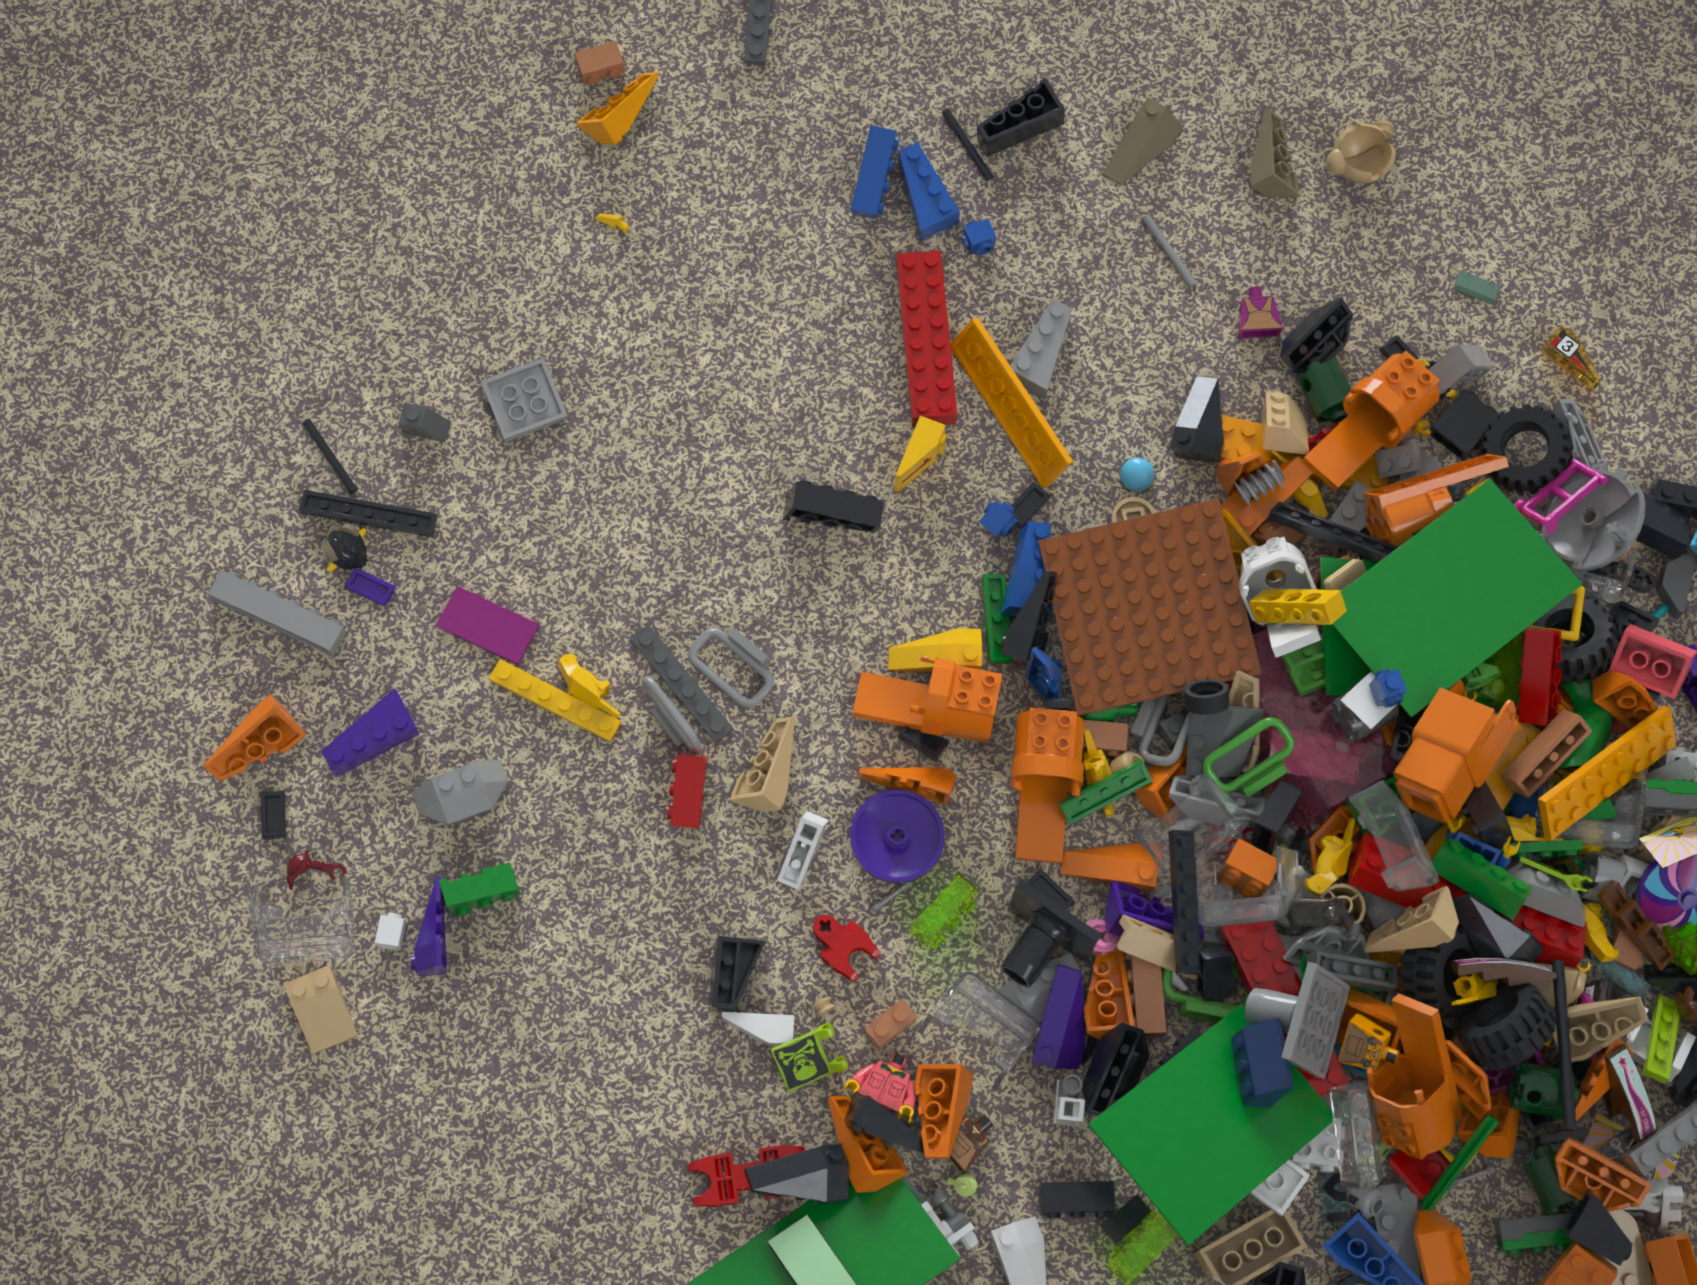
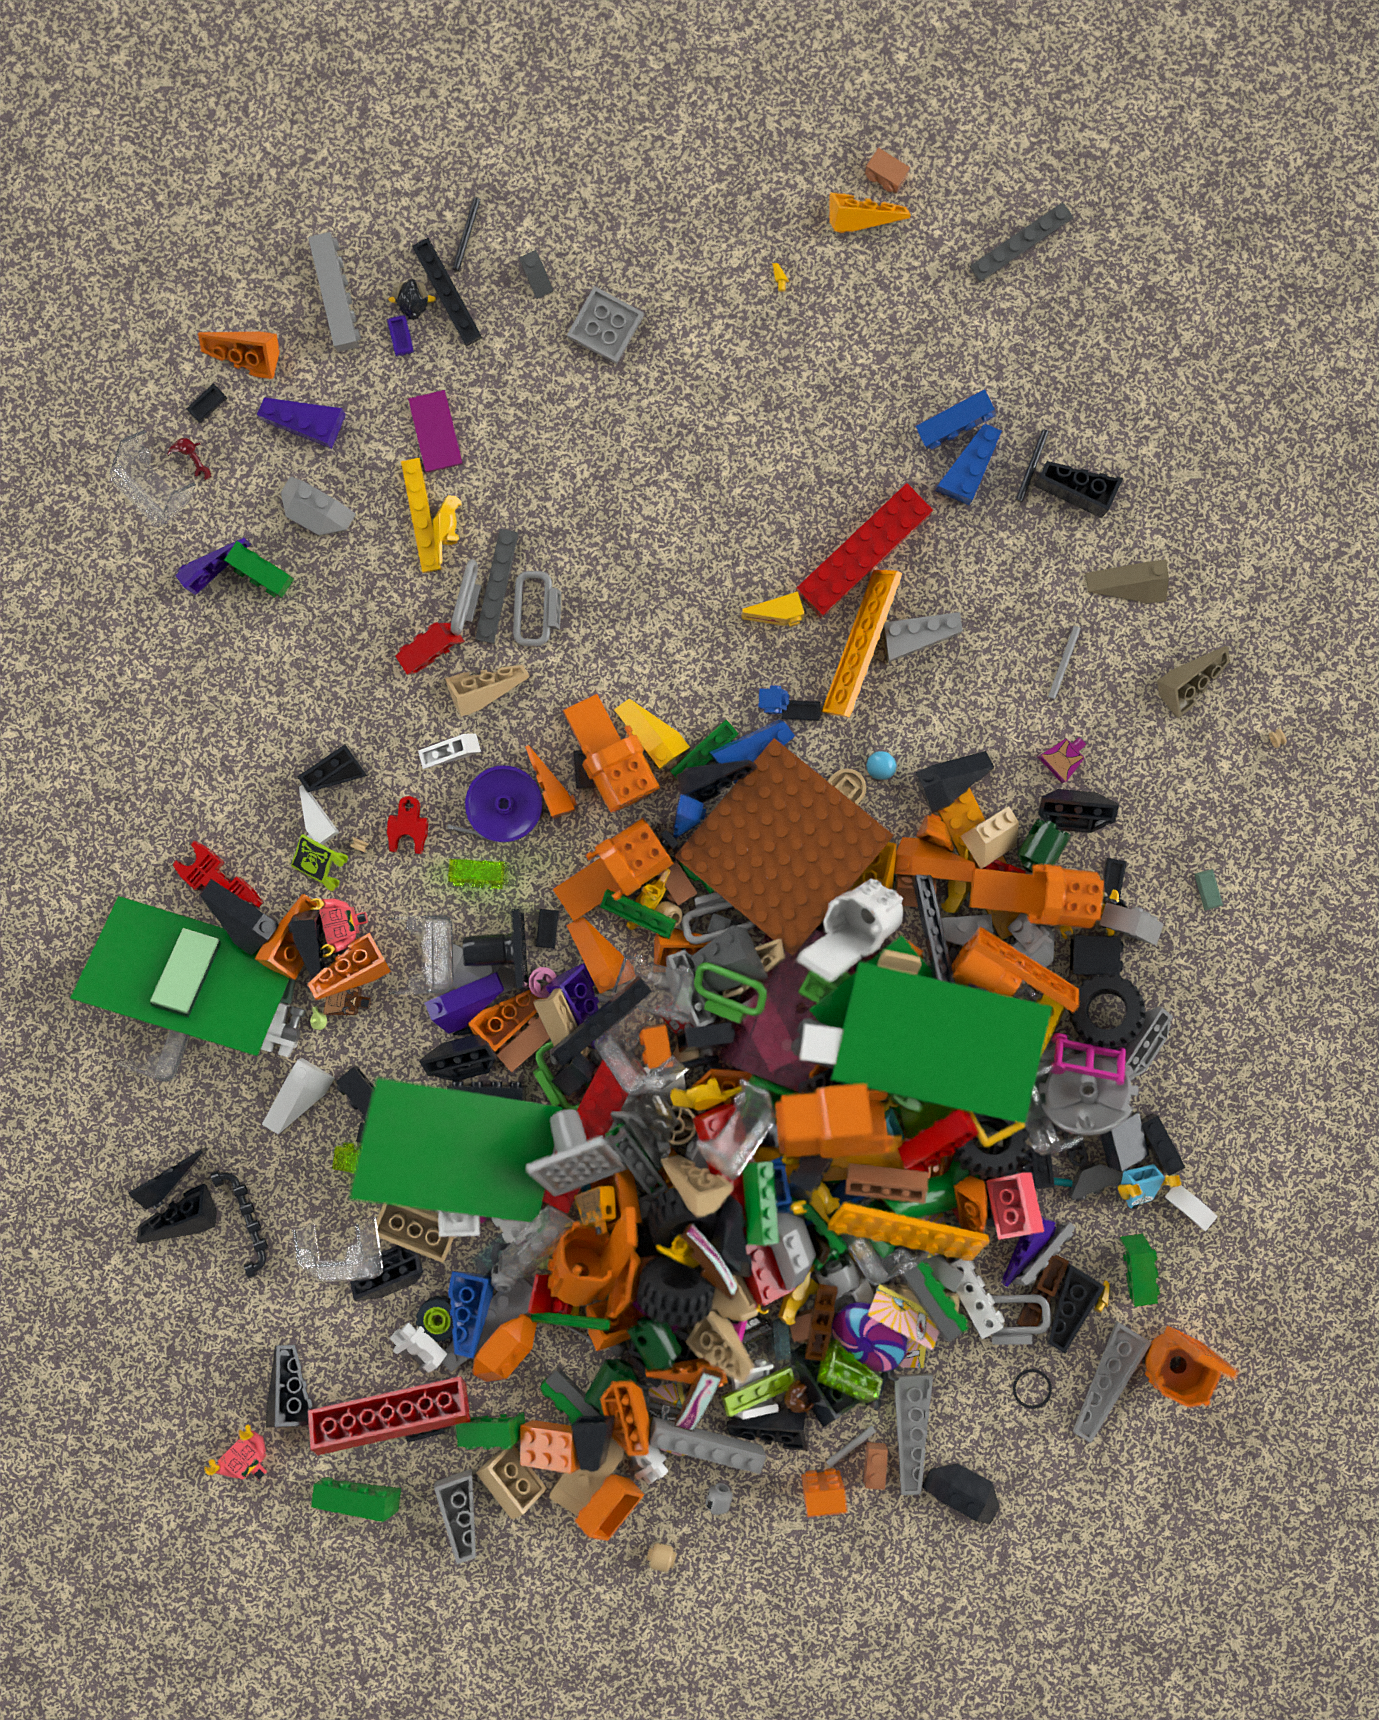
camera: 55 degrees right, 15 degrees up
(321, 1009) = (110, 537): tan slope -> none
(391, 931) = (190, 538): white brick -> none
(833, 507) = (693, 586): black wedge -> none
(890, 1024) = (379, 895): nougat brick -> none
(979, 237) = (967, 527): blue brick -> none
(1068, 1105) = (415, 1046): white hips -> none
(1206, 696) = (738, 939): black tyre -> none
(1259, 1065) = (523, 1148): dark blue slope -> none
(1260, 483) = (932, 853): light grey piece -> none
(1298, 606) = (848, 947): yellow brick -> none
(1361, 154) = (1250, 733): tan piece -> none
(1388, 688) = (835, 1050): blue brick -> none
(1564, 1047) = (689, 1337): black piece -> none
(1568, 417) = (1153, 1023): light grey hinge -> none
(1569, 354) = (1207, 989): clear yellow slope -> none
(1569, 879) = (808, 1247): lime flag -> none

